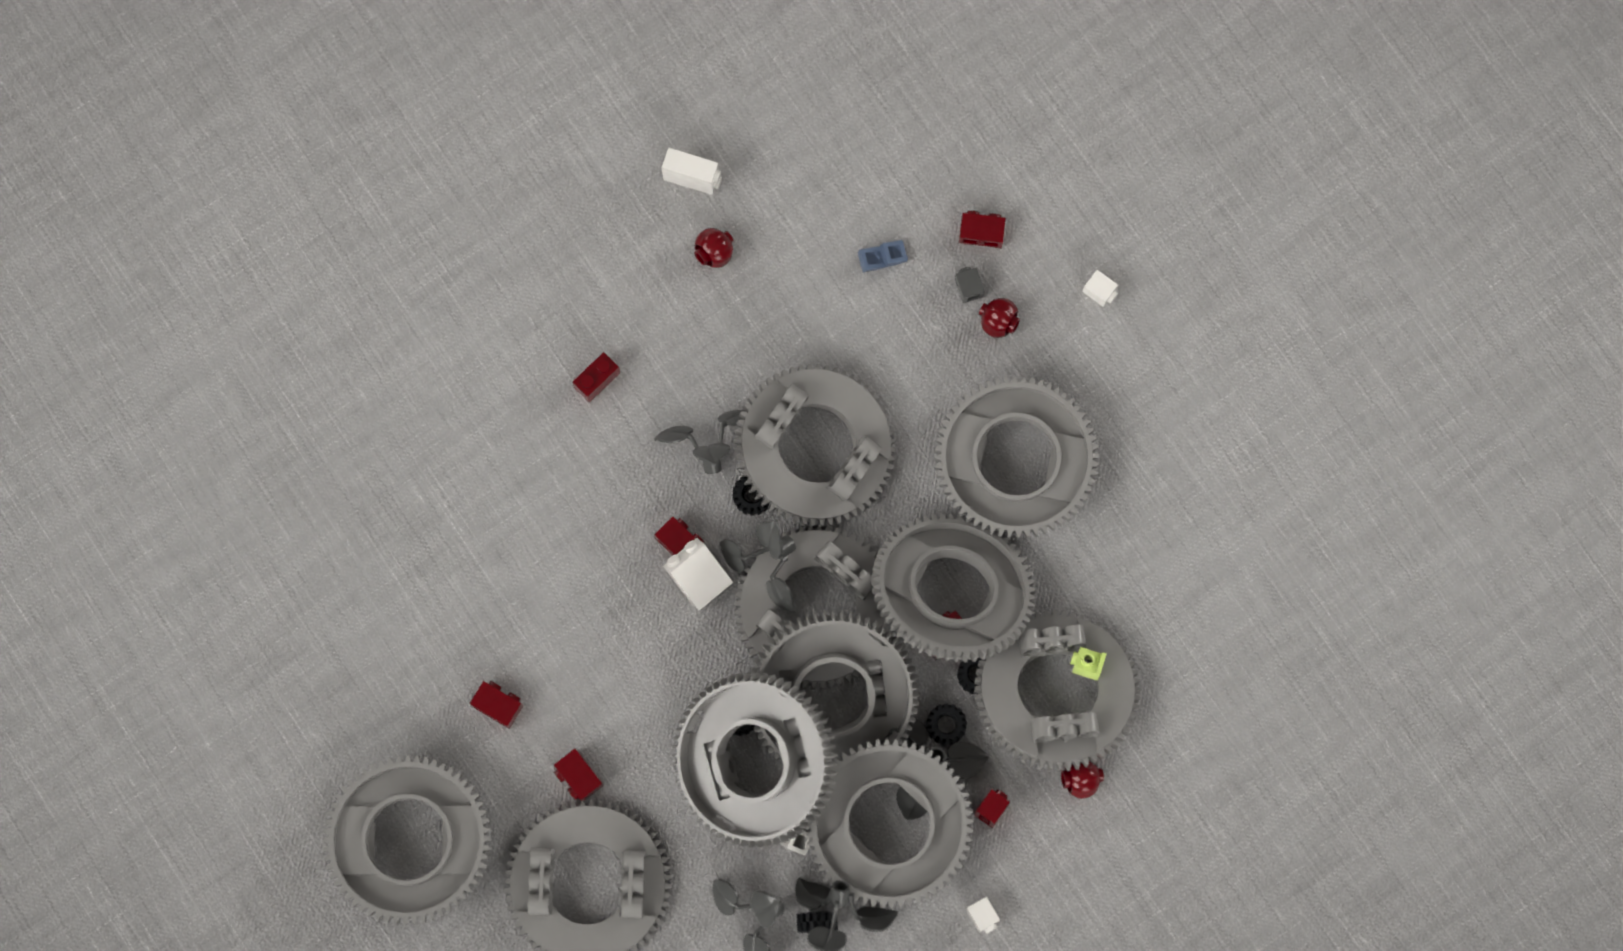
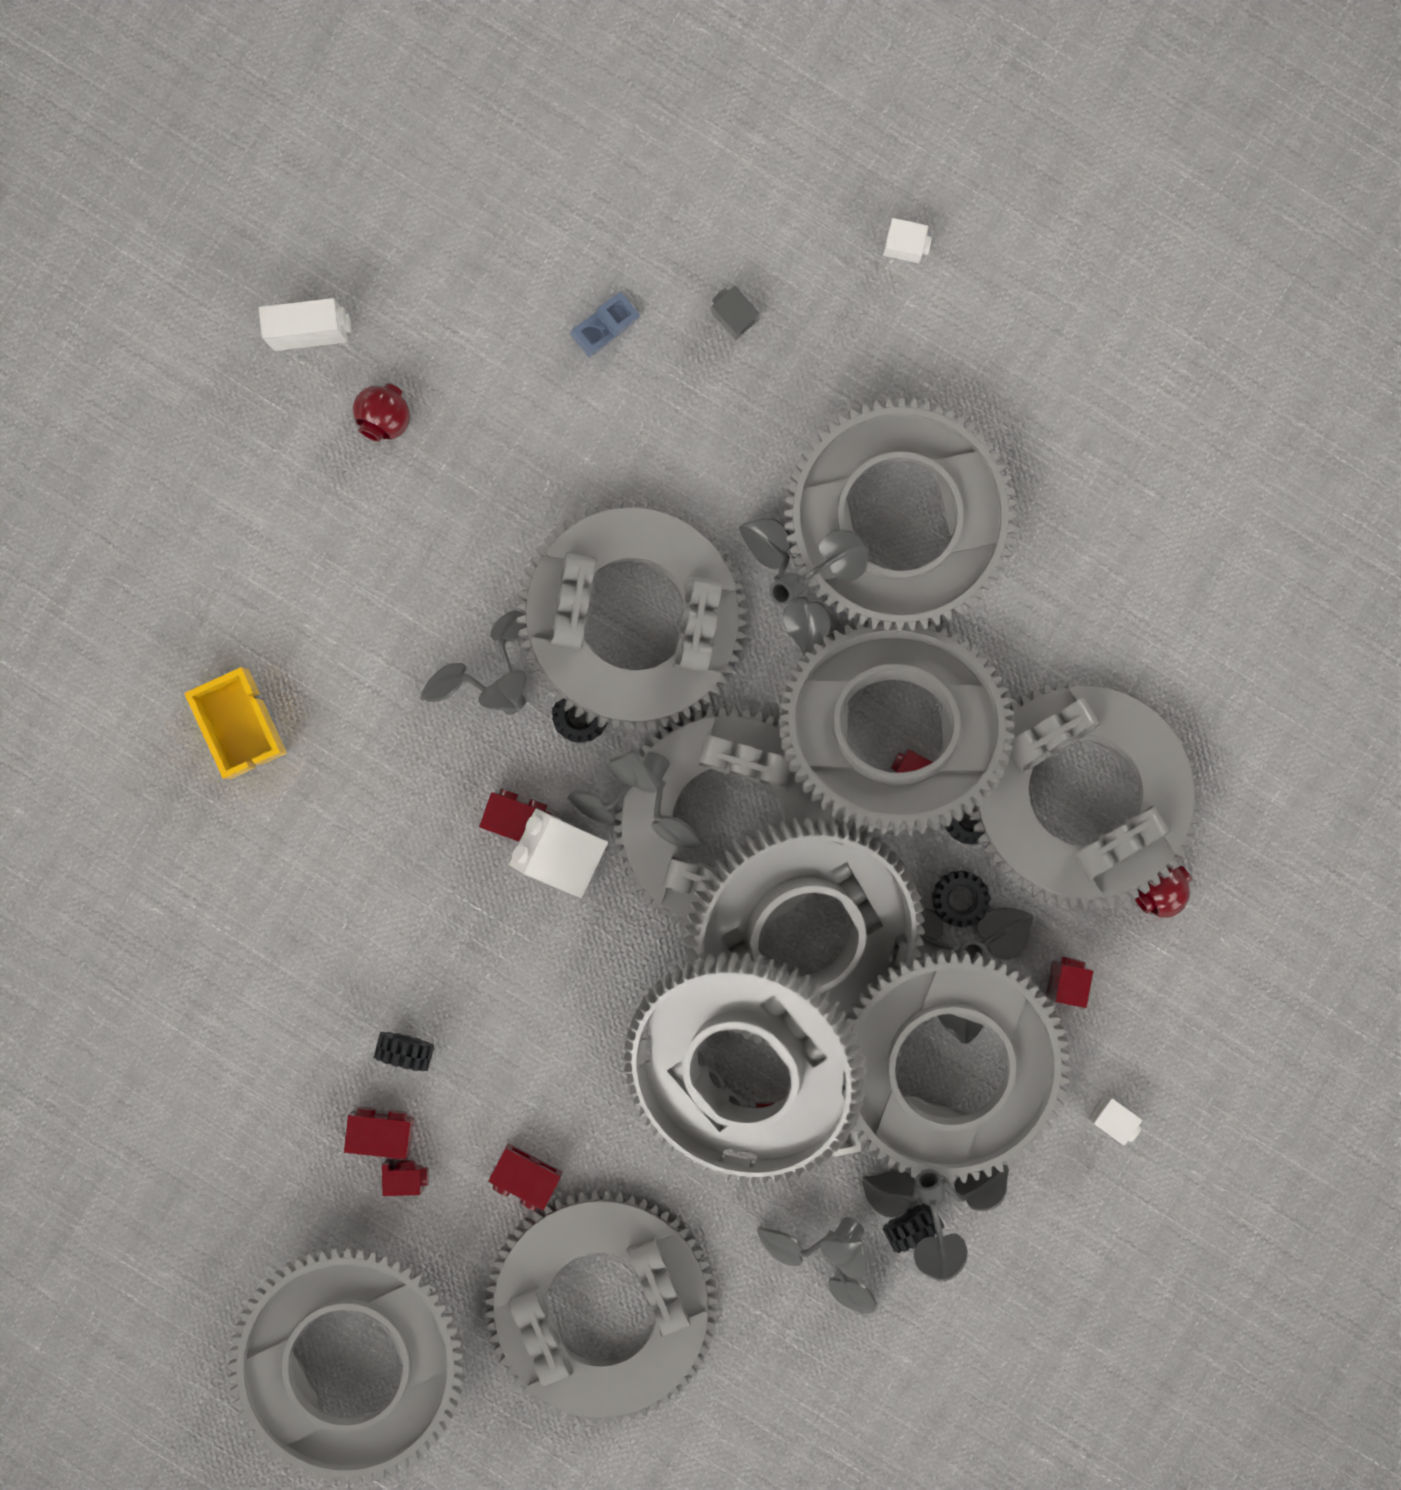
camera: 25 degrees left, 10 degrees up
(499, 740) = (404, 1178): none -> dark red brick
(529, 399) = (235, 723): none -> yellow piece
(538, 656) = (404, 1051): none -> black tyre
(596, 377) = (308, 653): dark red brick -> none
(968, 467) = (844, 553): none -> dark grey plant
(982, 229) = (718, 230): dark red brick -> none
(999, 317) = (792, 338): dark red plant -> none
(1089, 670) = (1103, 753): yellowish green brick -> none

